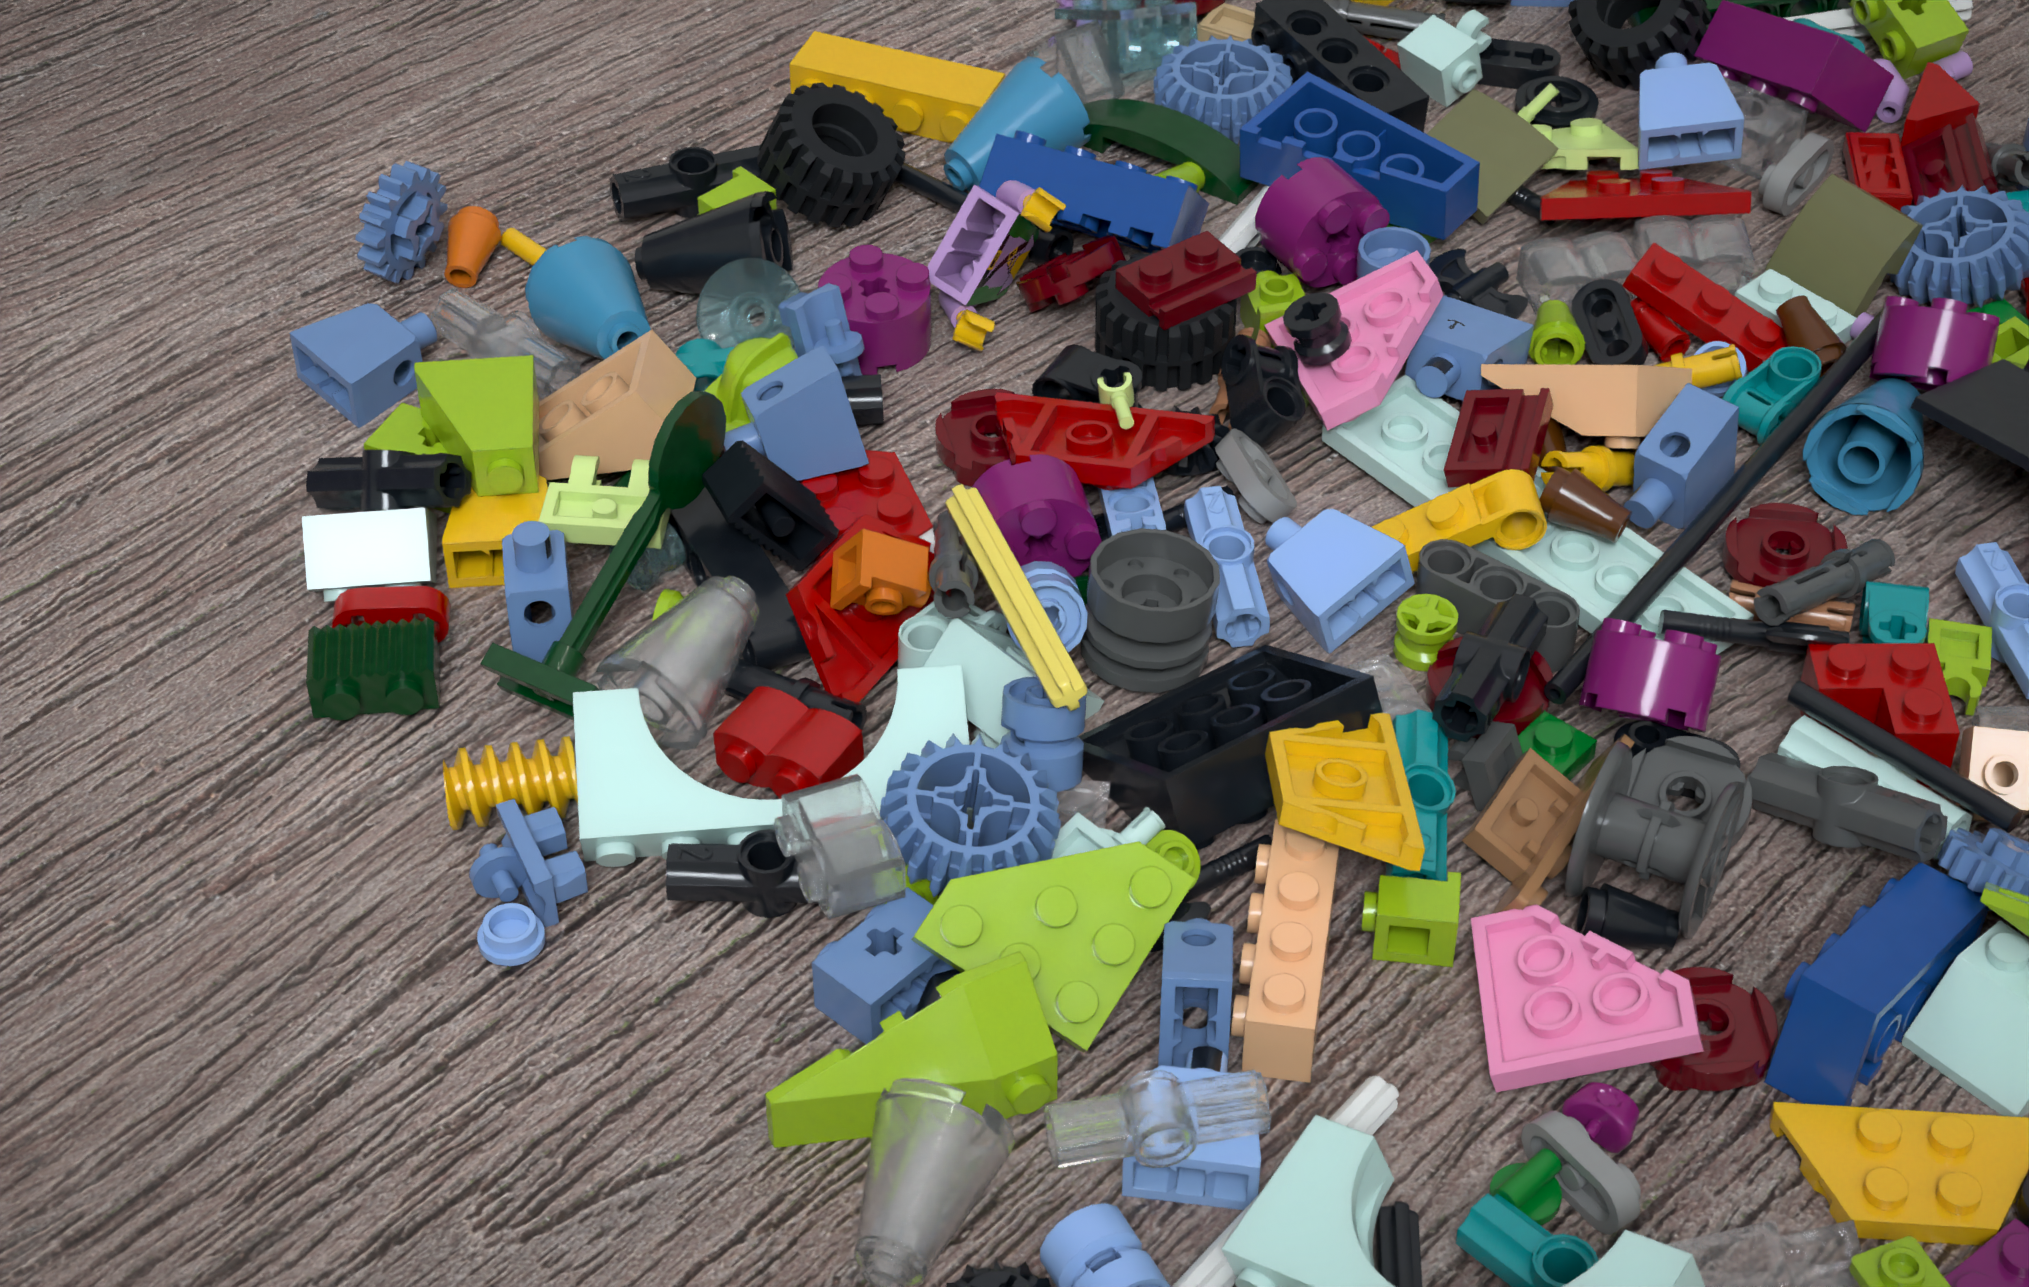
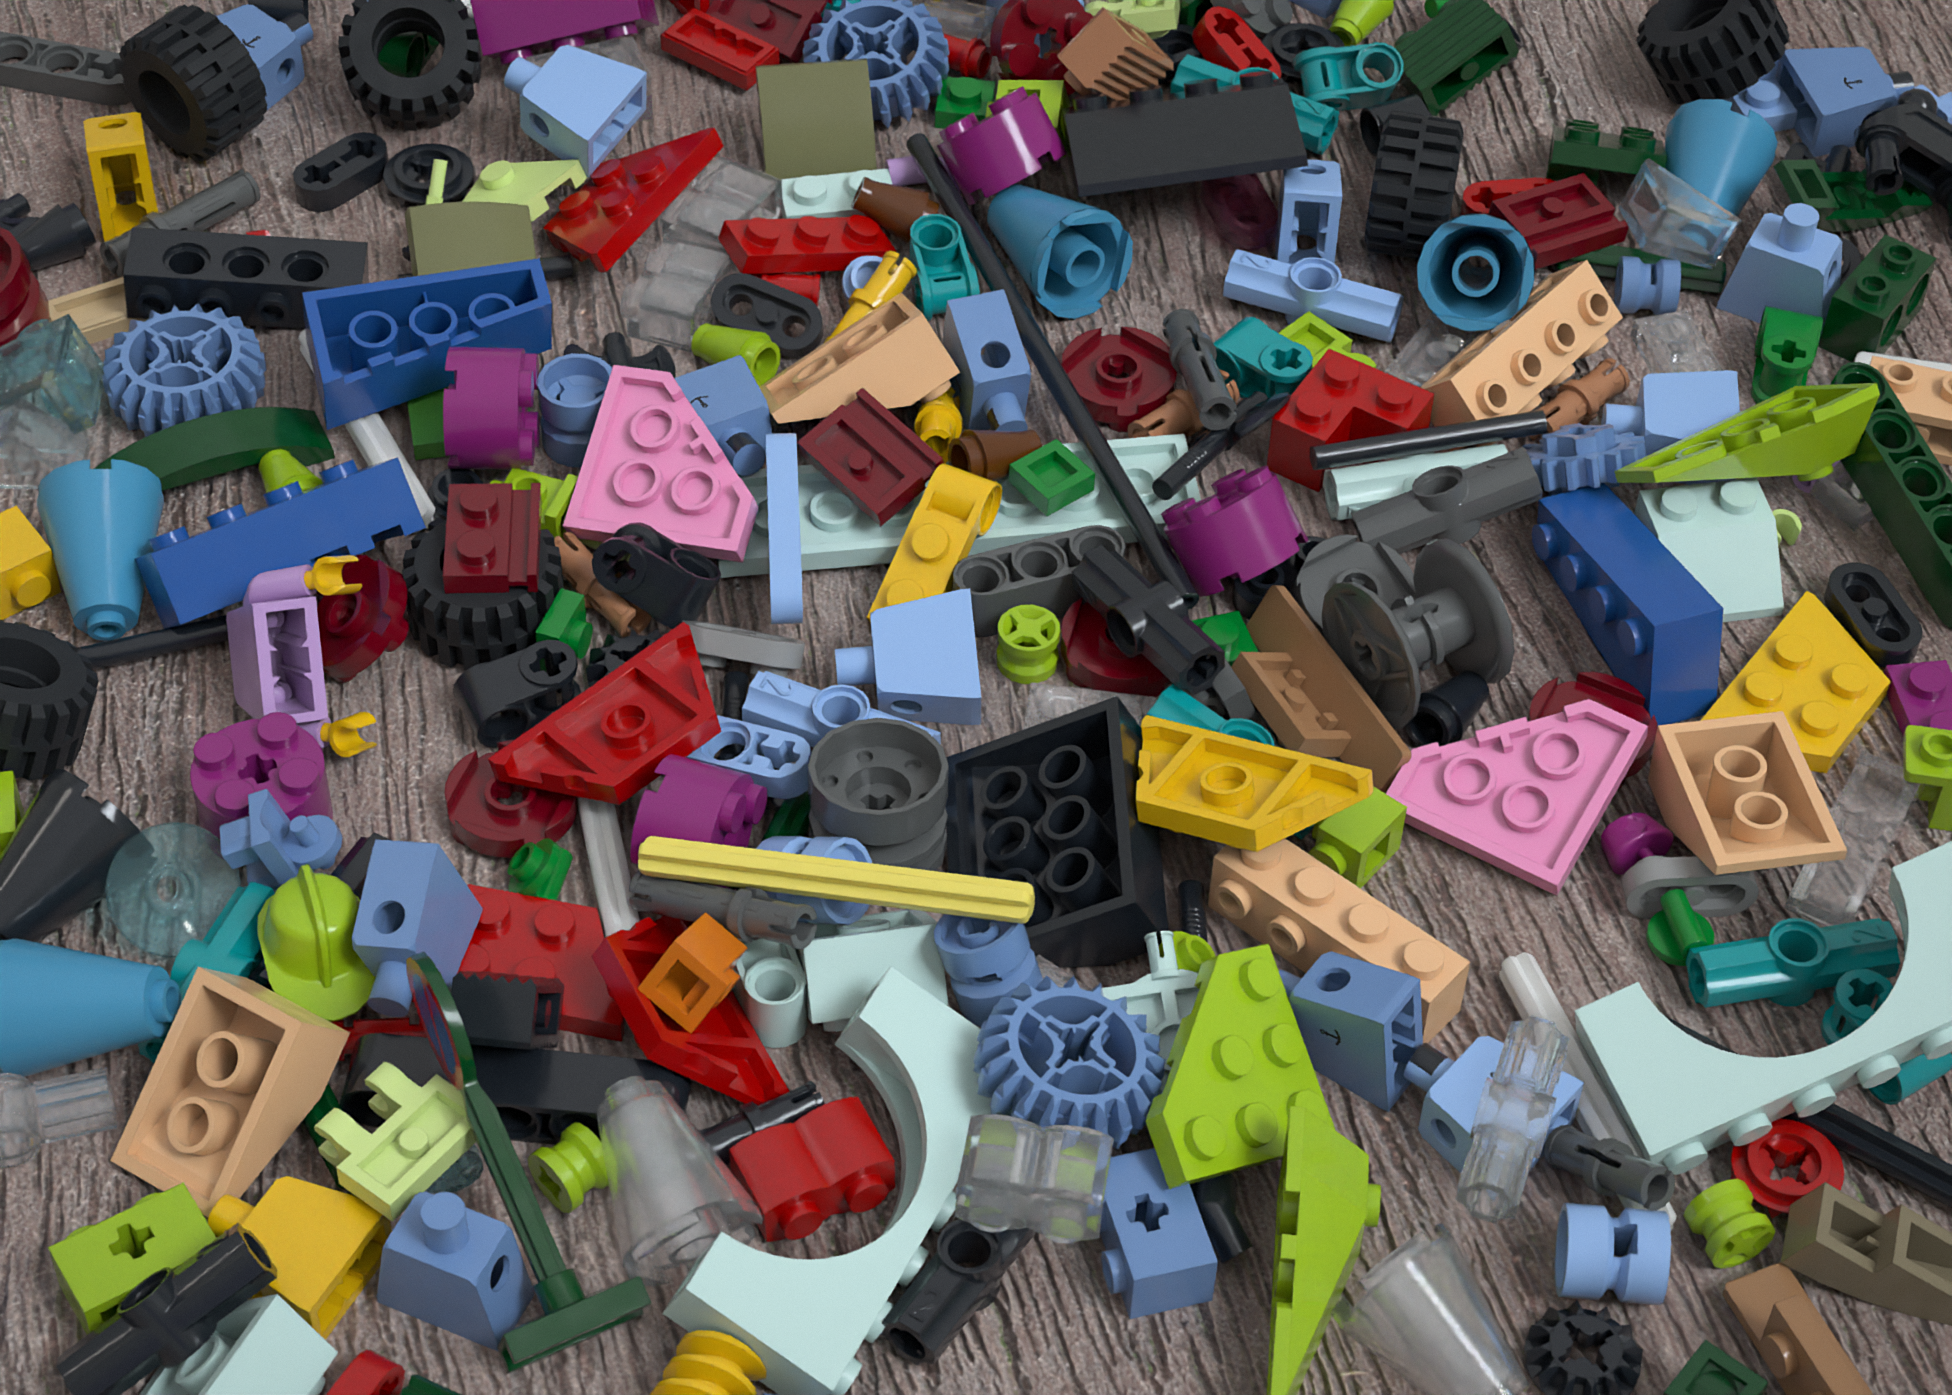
camera: 60 degrees left, 5 degrees up
(487, 417) = (183, 1177): lime slope -> none
(937, 480) = (539, 869): none -> green plate
(1120, 398) = (589, 660): yellowish green hand -> none
(1170, 380) = (566, 623): none -> green plate
(1191, 1230) = (1609, 1167): none -> dark grey pin
(1317, 328) = (652, 502): black wheel -> none
(1324, 451) = (784, 529): none -> light blue beam
(1445, 57) = (307, 199): light aqua brick -> none
(1596, 549) = (1051, 477): none -> green plate
(1701, 1147) = (1742, 794): none -> light nougat slope
(1797, 173) = (681, 92): light grey plate -> none

